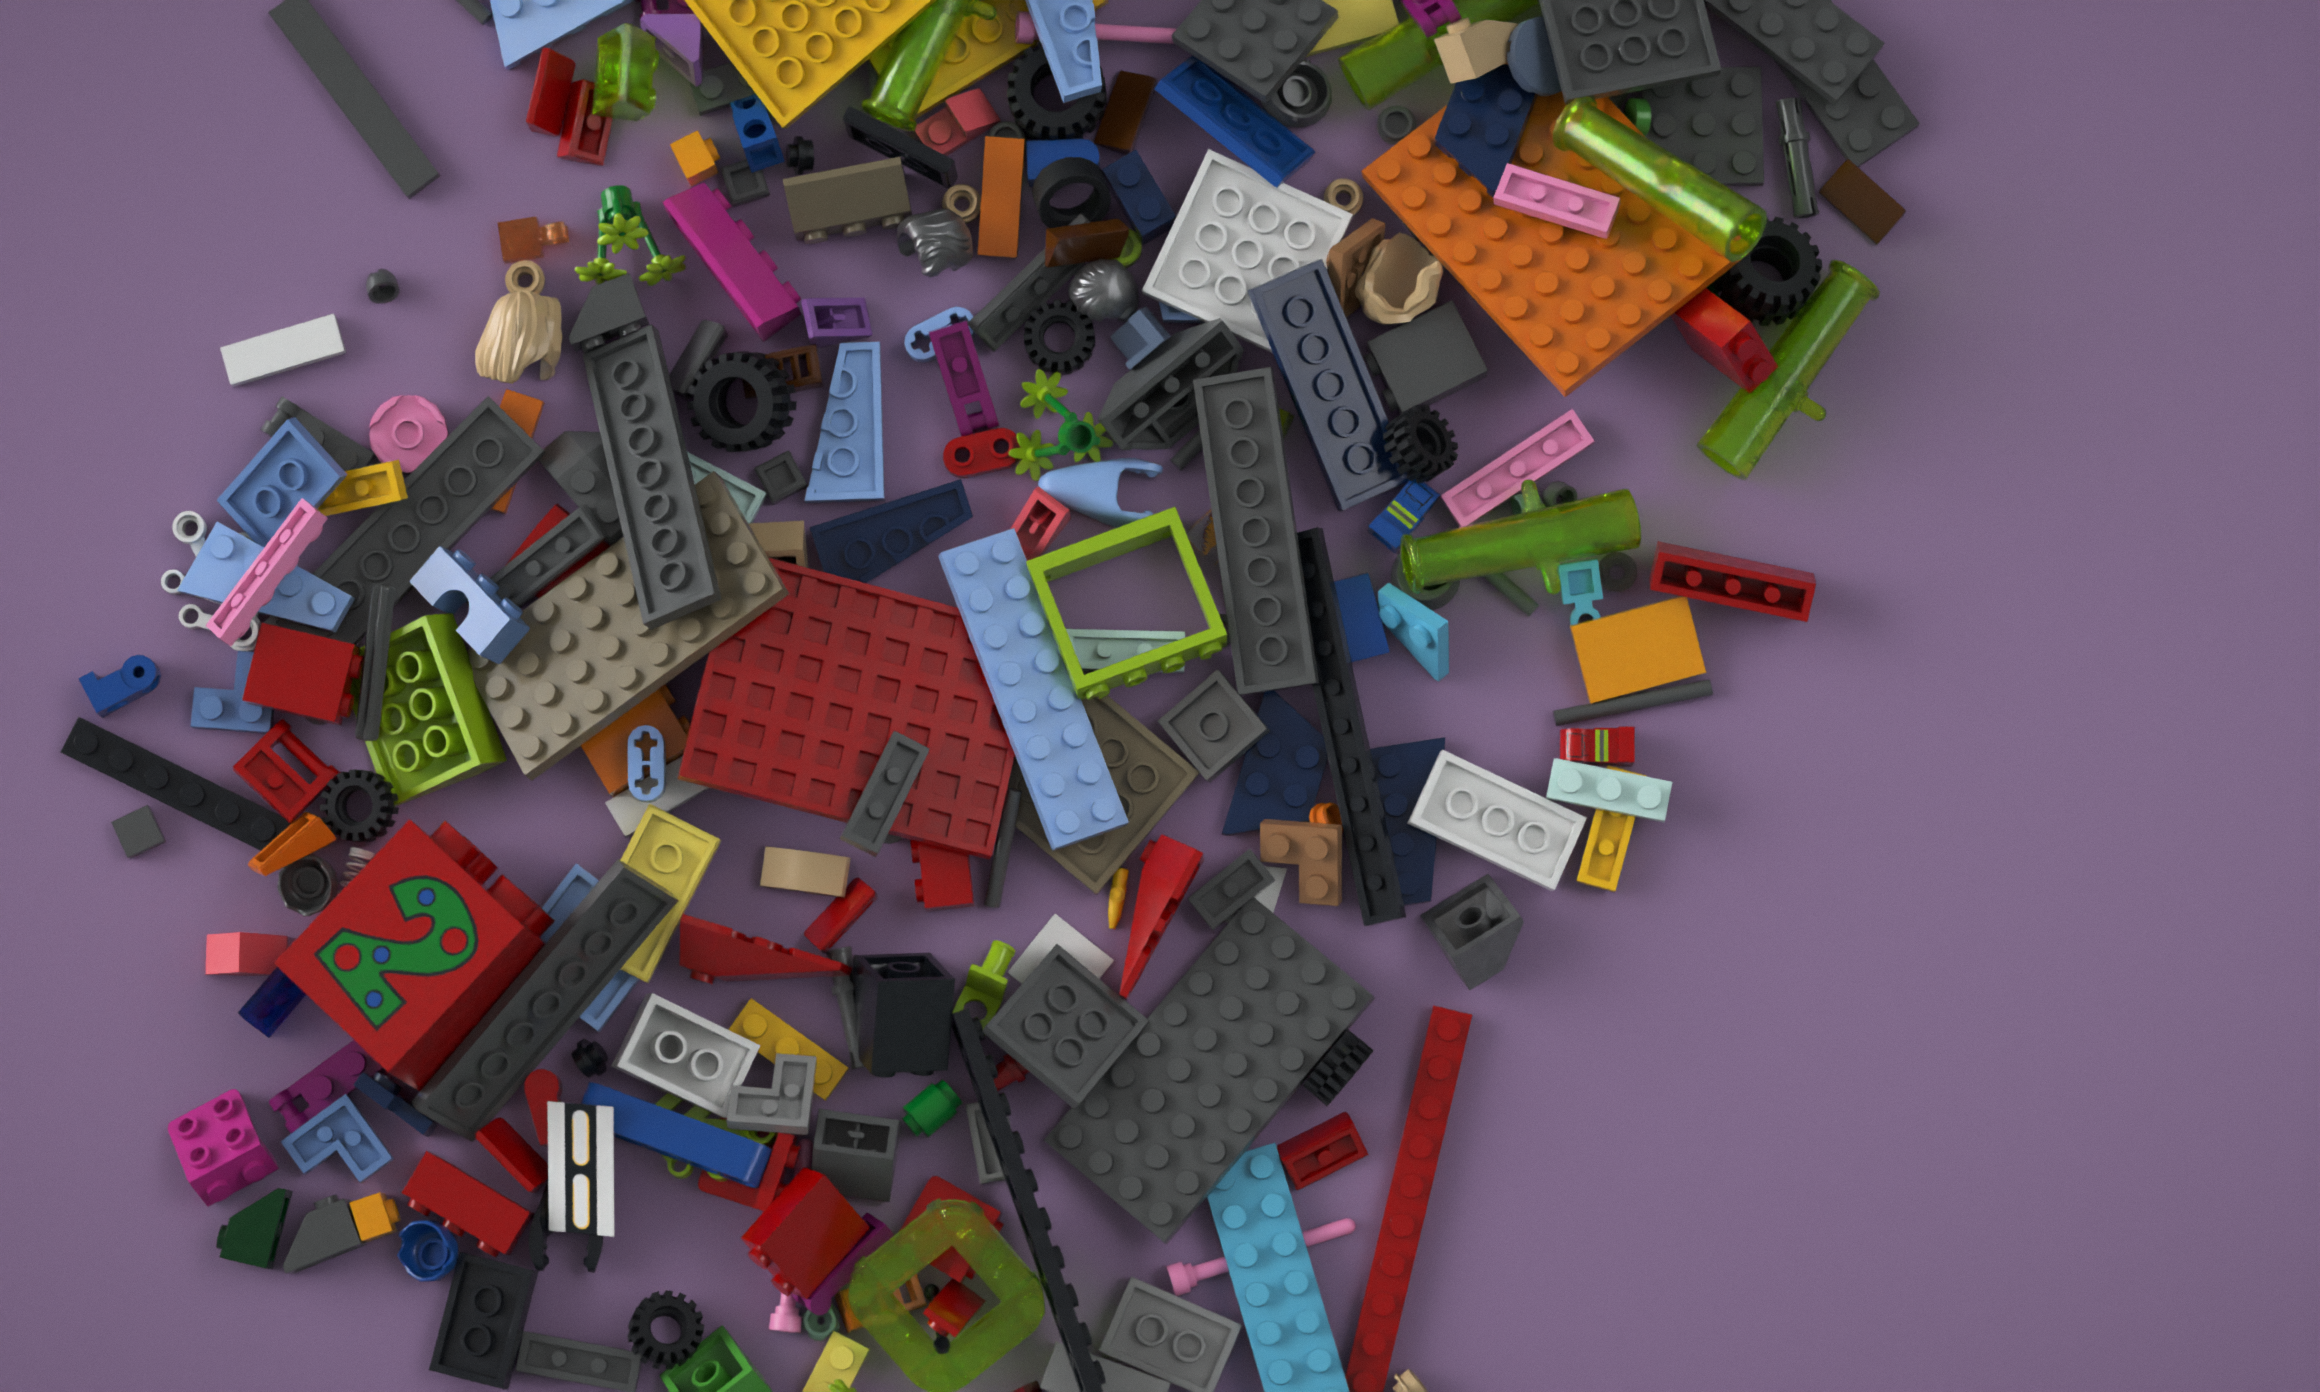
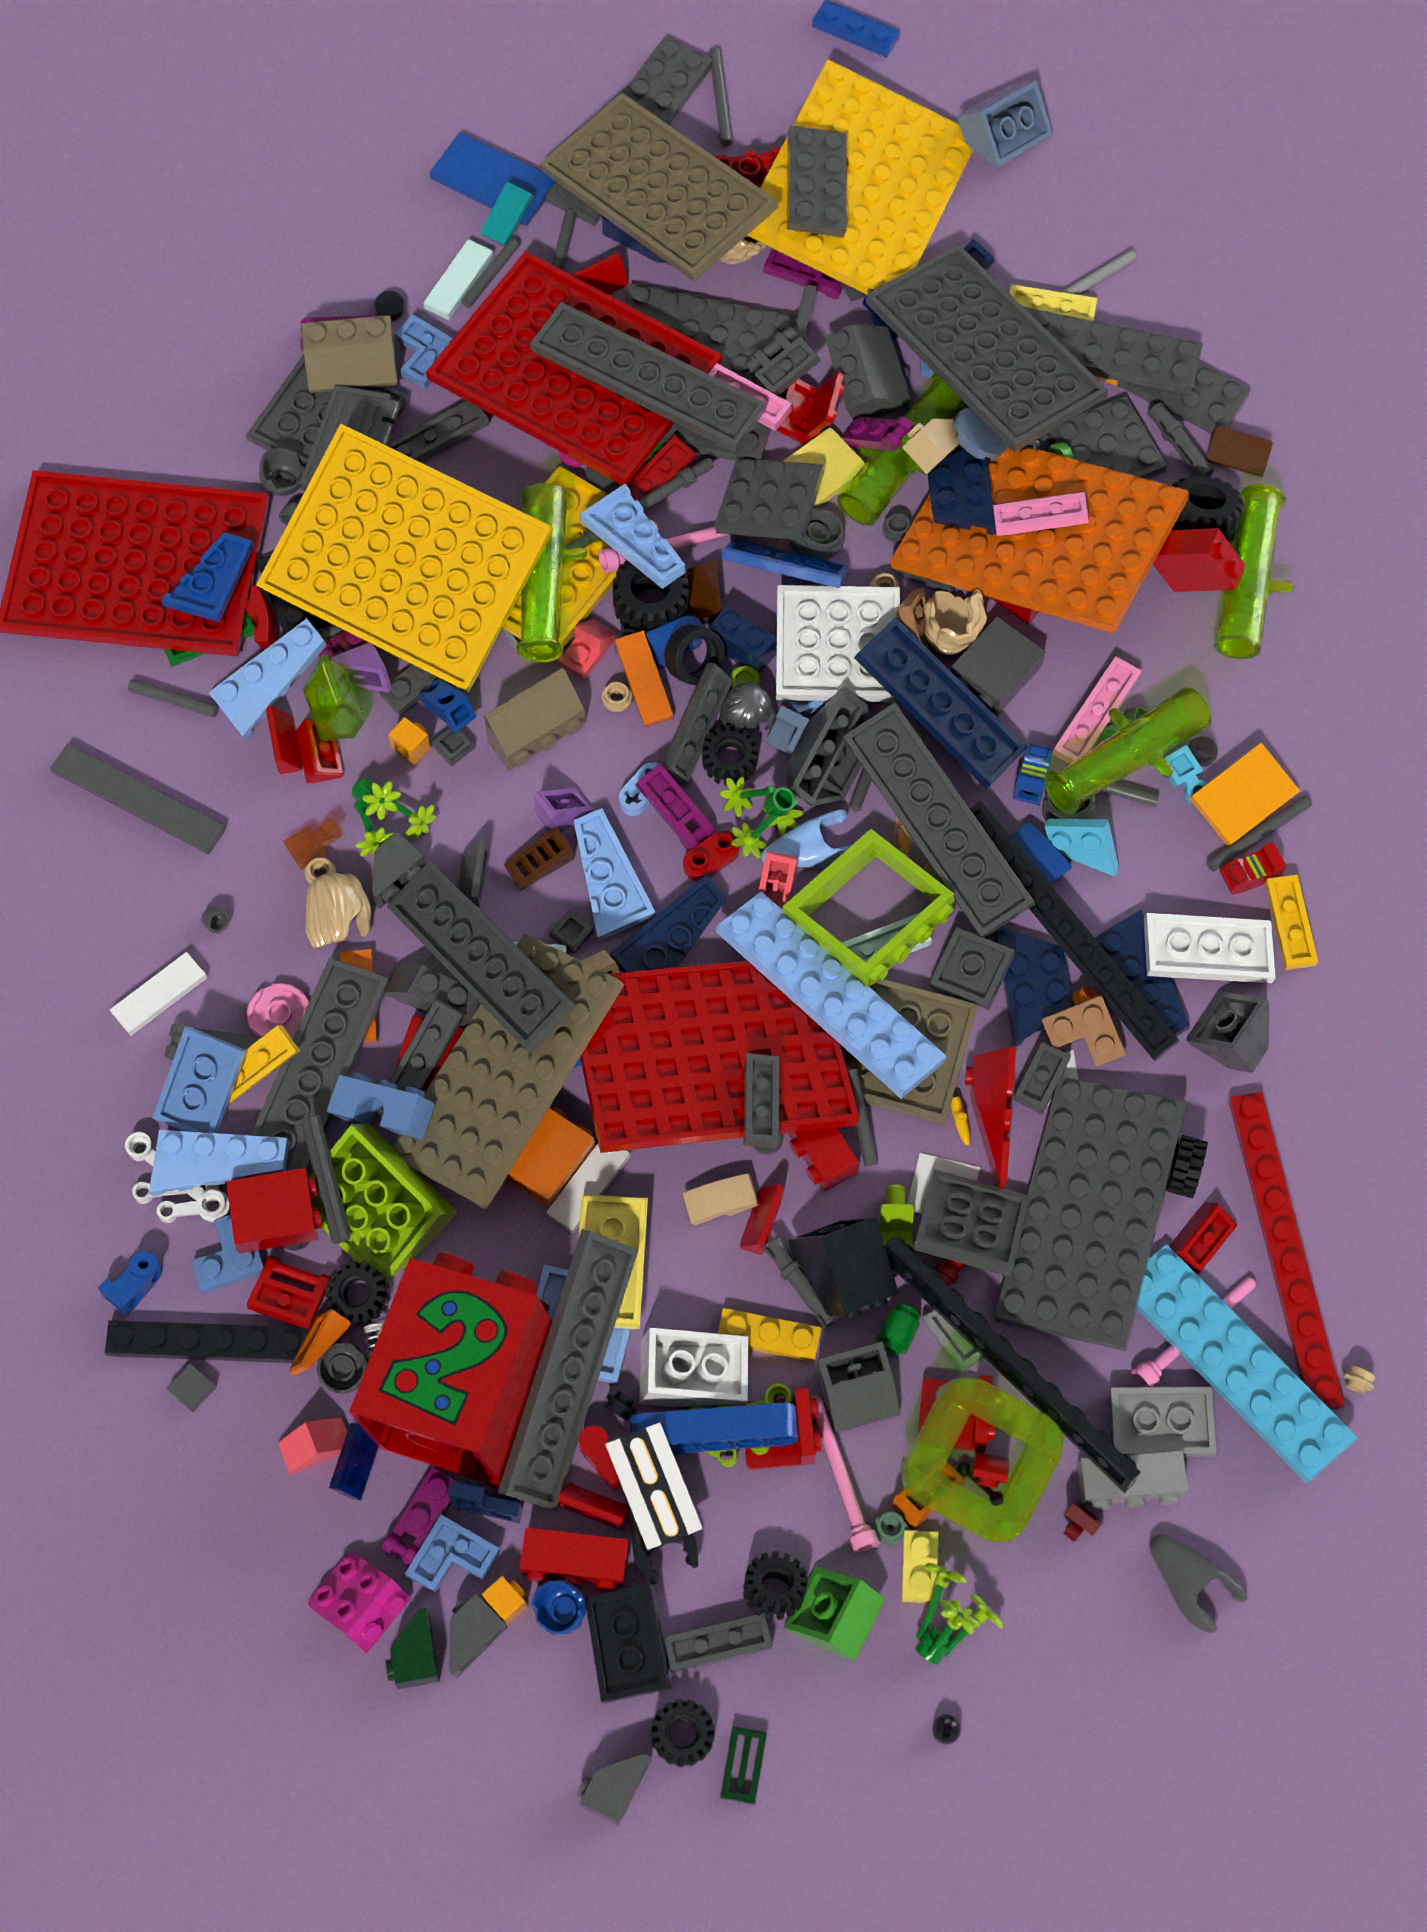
camera: 30 degrees left, 15 degrees down
(266, 572) = (214, 1144): bright pink plate -> none
(636, 763) = (574, 1160): light blue beam -> none
(712, 409) = (502, 866): black tyre -> none
(729, 955) = (692, 1279): red wedge -> none
(732, 259) = (468, 796): dark pink slope -> none
(779, 1108) = (786, 1372): light grey plate -> none
(800, 155) = (483, 706): black plate -> none
(804, 1234) = (850, 1459): red brick -> none
(875, 1237) = (886, 1475): magenta plate -> none
(896, 144) = (532, 666): black tile -> none
(938, 238) = (615, 717): flat silver hair -> none
(1085, 242) = (720, 679): reddish brown slope -> none
(1425, 459) = (1023, 717): black tyre -> none
(1609, 790) = (1277, 893): light aqua plate -> none
(1661, 179) = (1111, 461): clear neon green piece -> none
(1732, 581) = (1287, 720): red brick -> none

